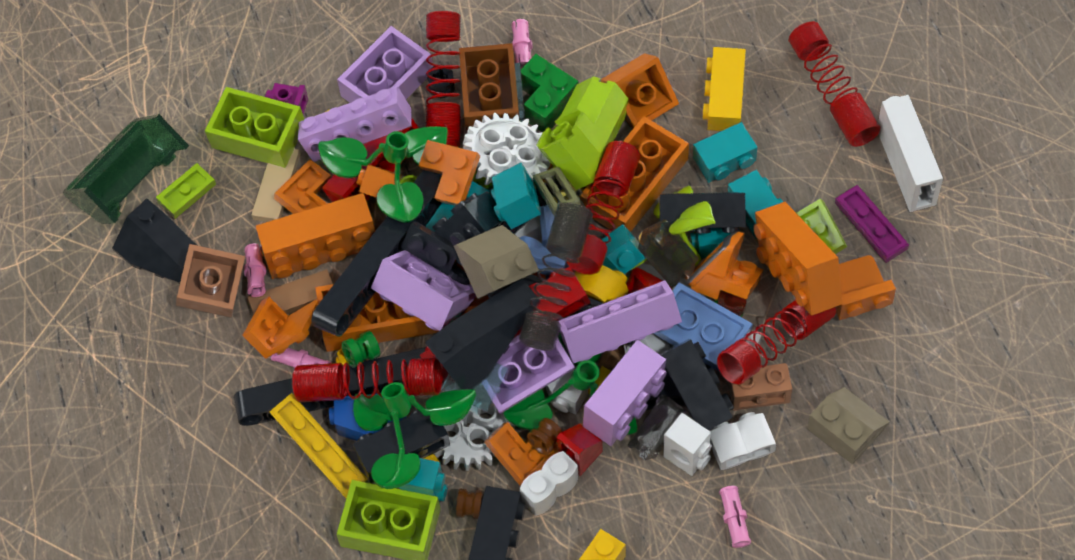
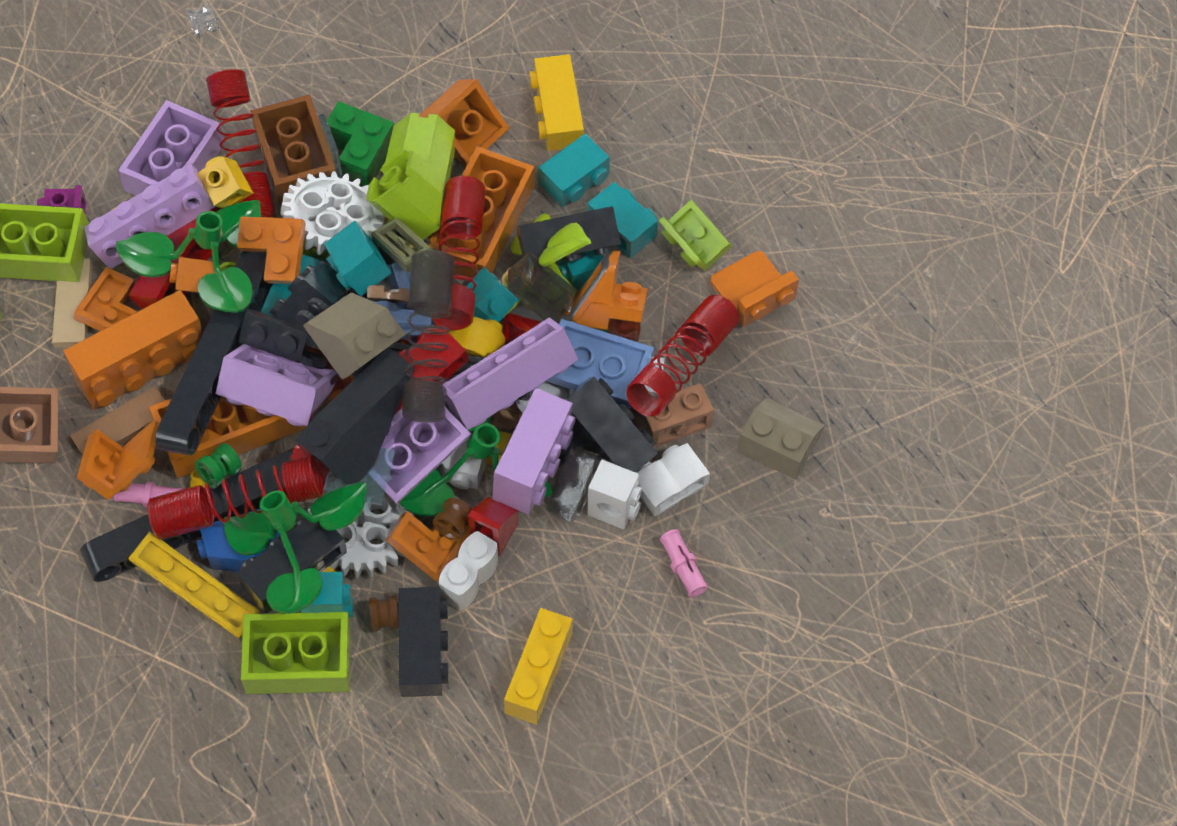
camera: 20 degrees left, 0 degrees up
(255, 270) = (71, 403): bright pink pin -> none
(421, 107) = (224, 182): none -> yellow brick
(443, 87) = (240, 157): black wheel -> none
(521, 43) = (317, 91): bright pink pin -> none
(528, 230) = (378, 293): none -> medium nougat tile
(798, 258) = (687, 266): orange brick -> none
(849, 110) = (699, 99): red piece -> none
(871, 223) = (751, 216): magenta tile -> none
(909, 153) = (775, 132): white brick -> none

